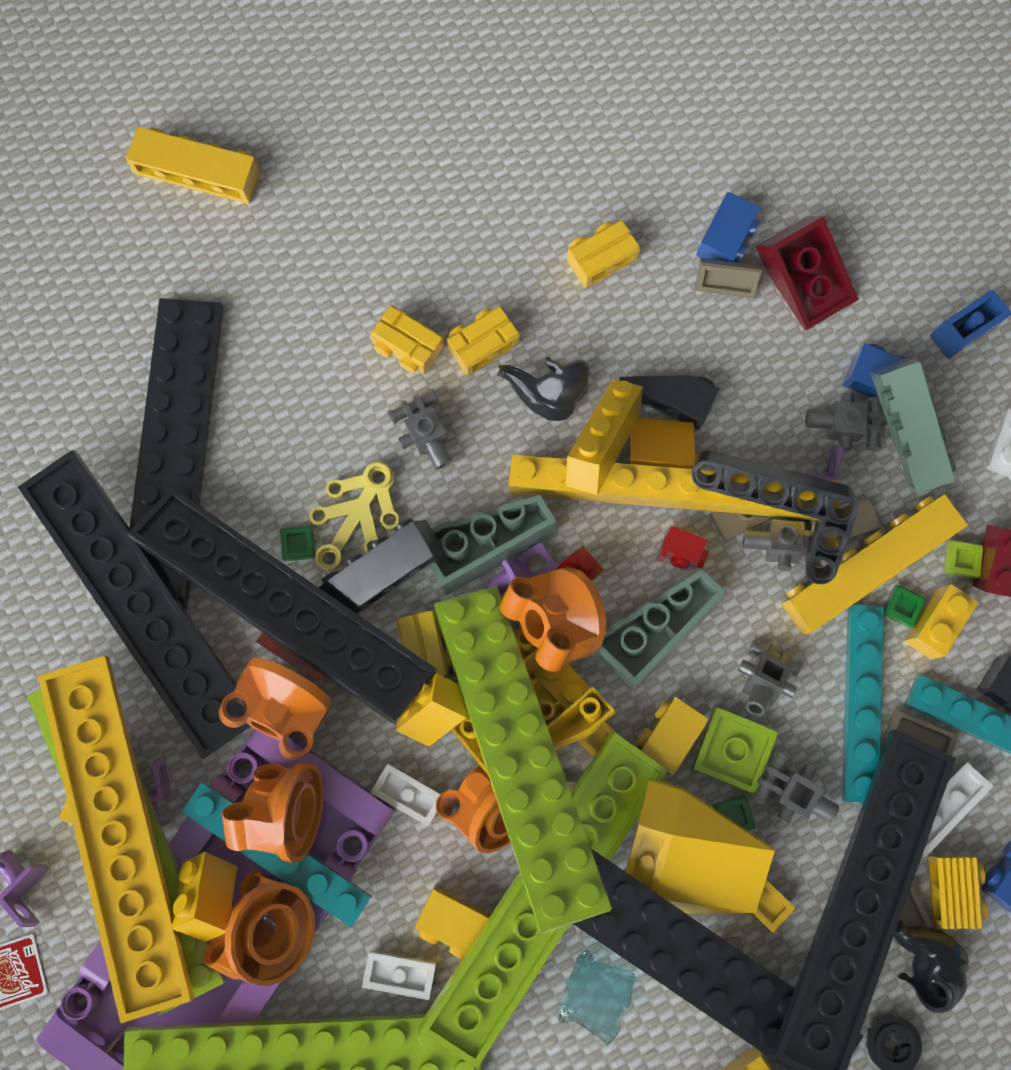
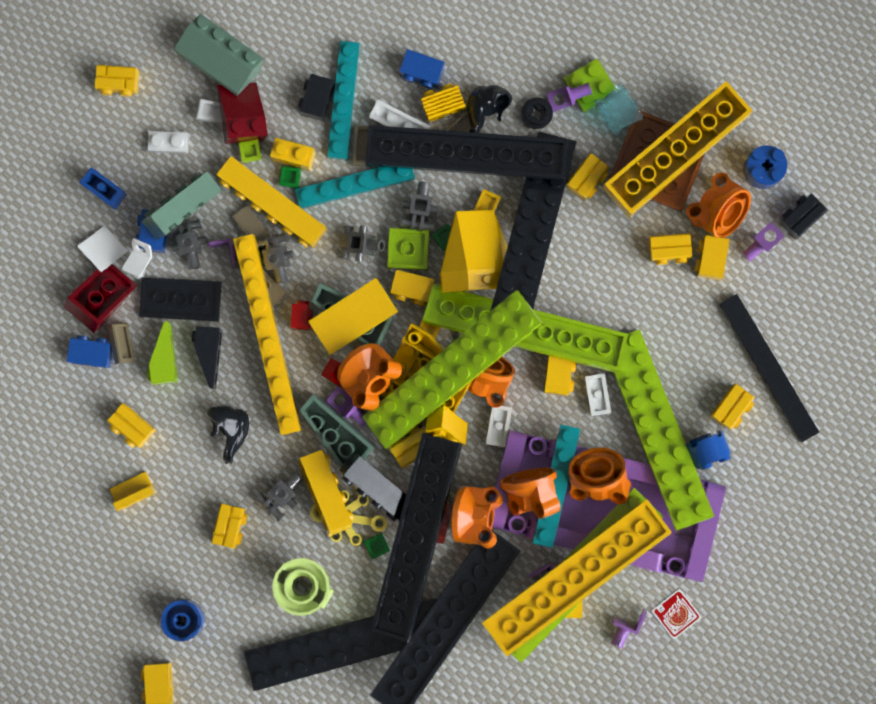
camera: 100 degrees left, 5 degrees up
(204, 897) = (592, 515): yellow brick -> none
(264, 387) = (289, 598): none -> yellowish green piece
(297, 231) = (171, 618): none -> blue brick
(402, 491) = (325, 493): none -> yellow brick
(482, 340) = (212, 479): yellow brick -> none
(507, 226) = (132, 491): none -> yellow panel
(596, 997) = (569, 282): clear light blue piece -> none
(603, 436) = (251, 383): yellow brick -> none
(657, 625) = (353, 316): none -> yellow tile
(662, 443) = (241, 349): light orange tile -> none
(683, 328) = (163, 362): none -> lime slope
(765, 384) = (180, 299): none -> black tile
(787, 499) = (257, 267): black beam -> none
(846, 336) = (138, 259): none -> white bracket
(877, 298) = (102, 248): none -> white sticker

